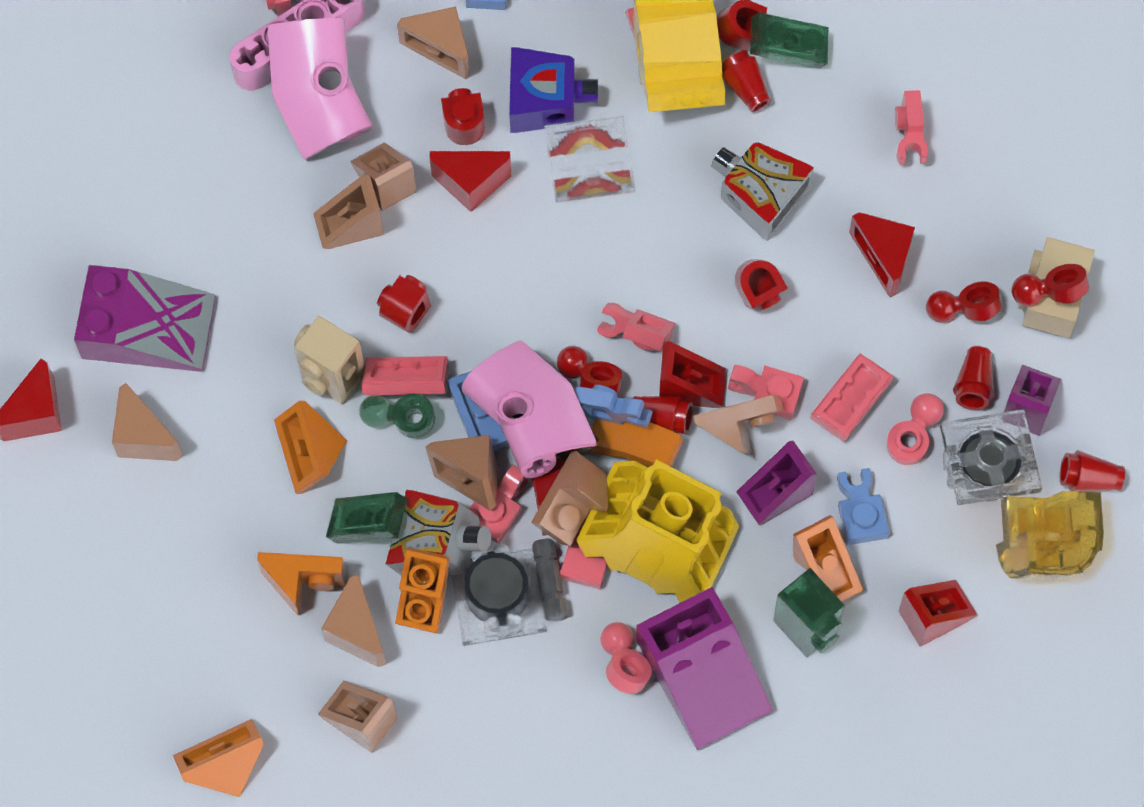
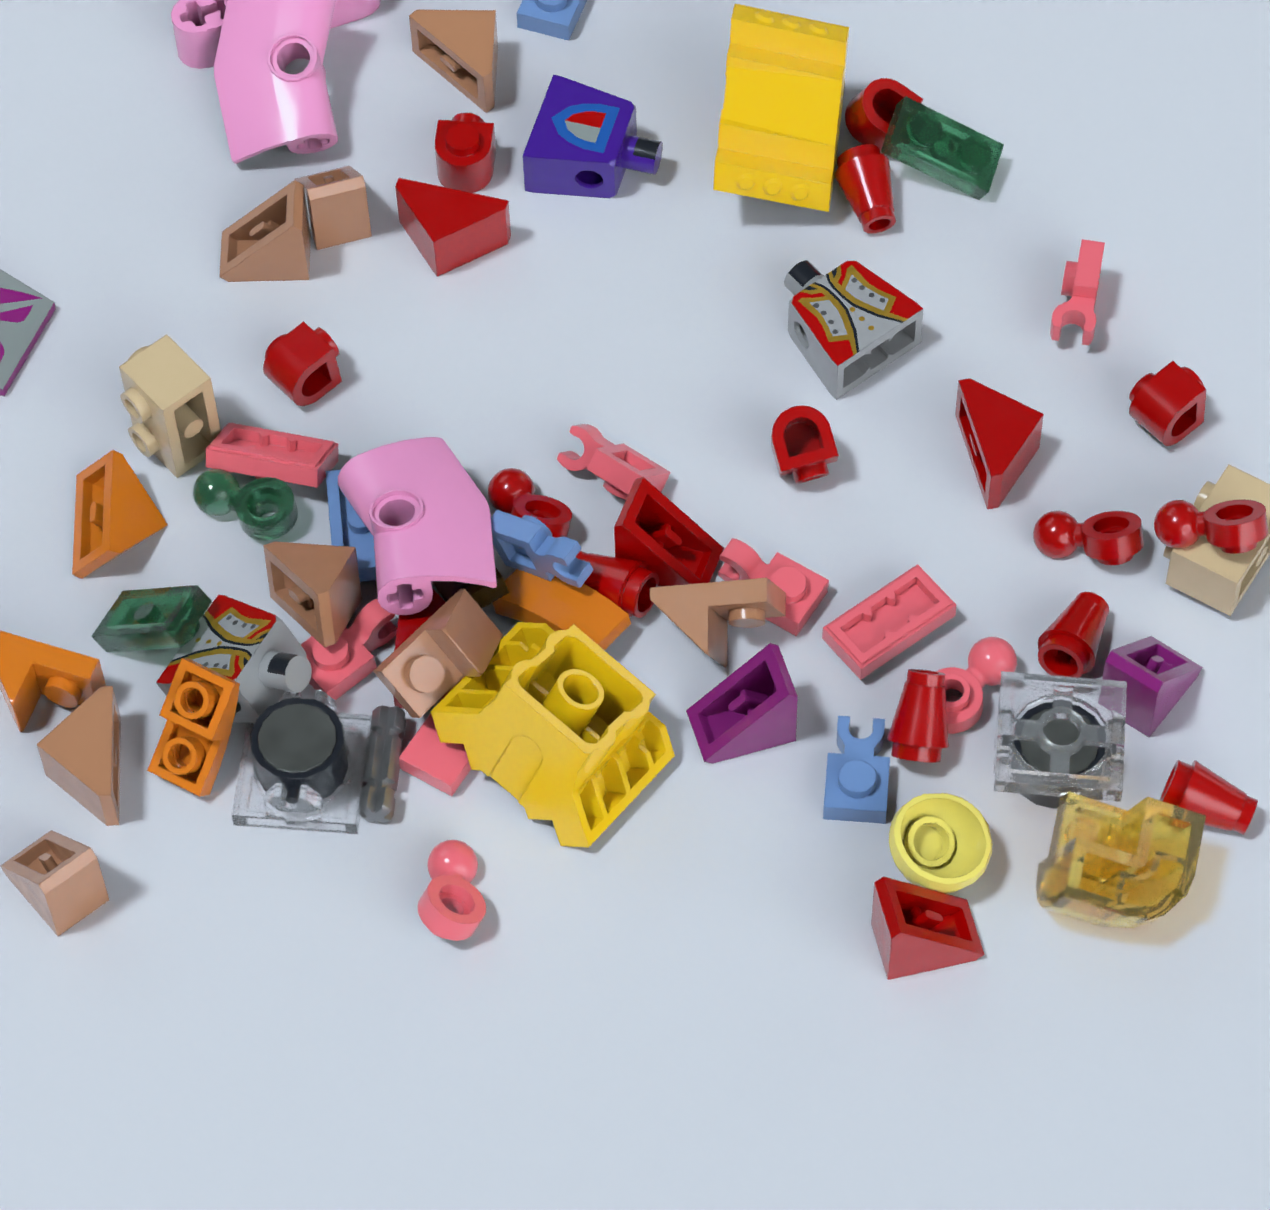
camera: 15 degrees right, 10 degrees down
(589, 159) = (619, 242): clear slope -> none
(703, 668) = (558, 925): magenta slope -> none
(809, 614) = (730, 883): clear green brick -> none
(825, 553) = (780, 824): orange slope -> none
(894, 465) = (920, 718): none -> red cone
(932, 549) = (940, 842): none -> light yellow piece
(990, 195) = (1169, 403): none -> red plate

